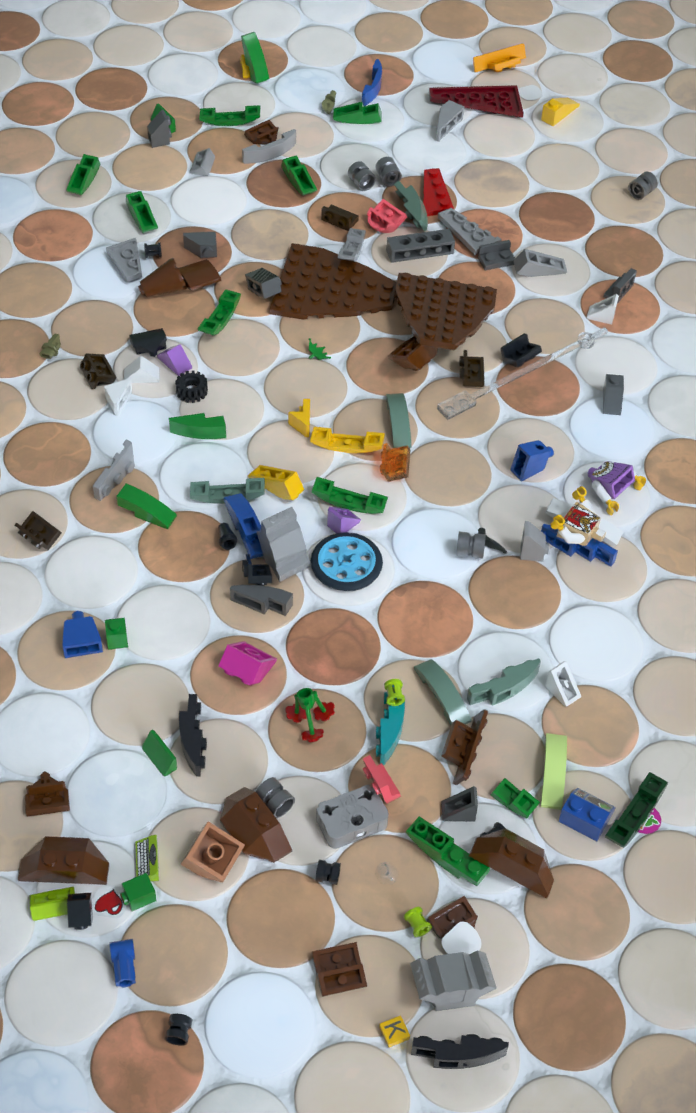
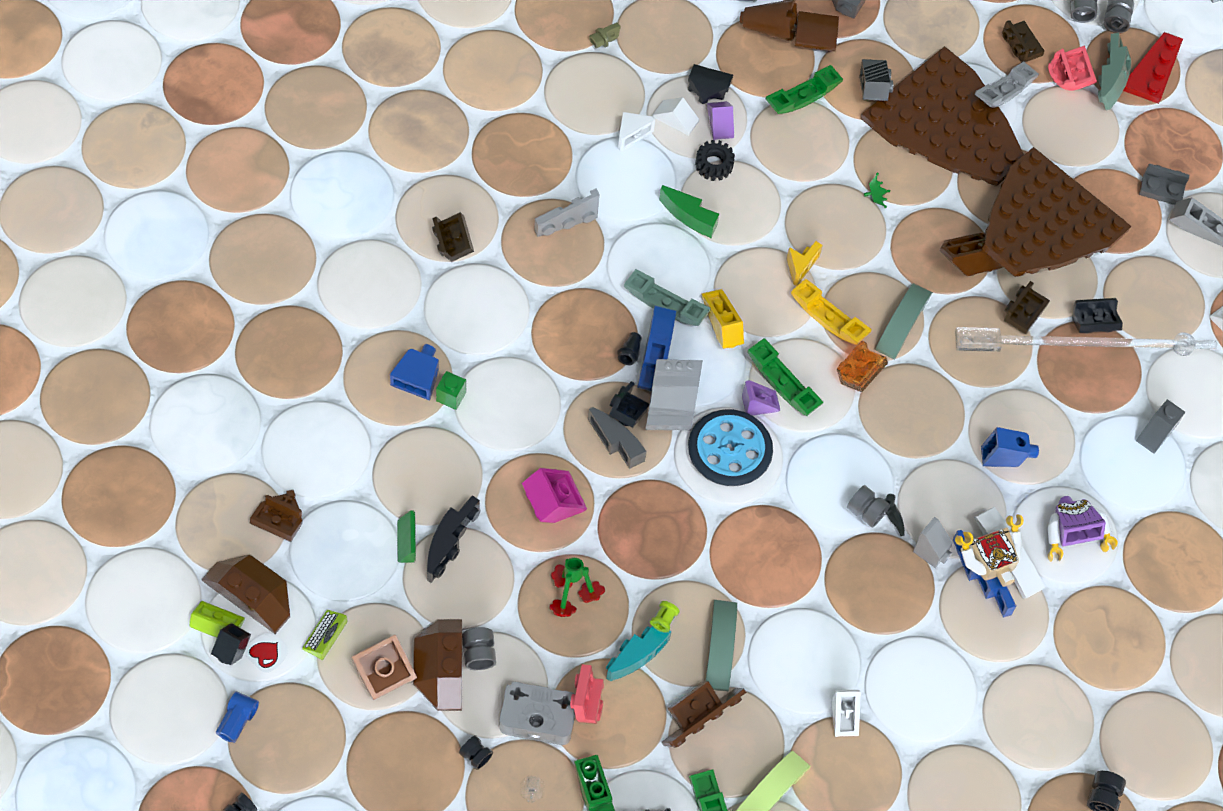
camera: 30 degrees right, 10 degrees up
(97, 369) = (633, 87): dark brown bracket -> none
(138, 892) = (293, 660): green brick -> none
(145, 506) = (573, 270): green slope -> none
(420, 245) = (1085, 126): dark grey brick -> none
(461, 806) = (648, 770): dark grey slope -> none
(466, 231) = (1153, 136): light grey wing -> none
(512, 682) = (797, 678): sand green slope -> none

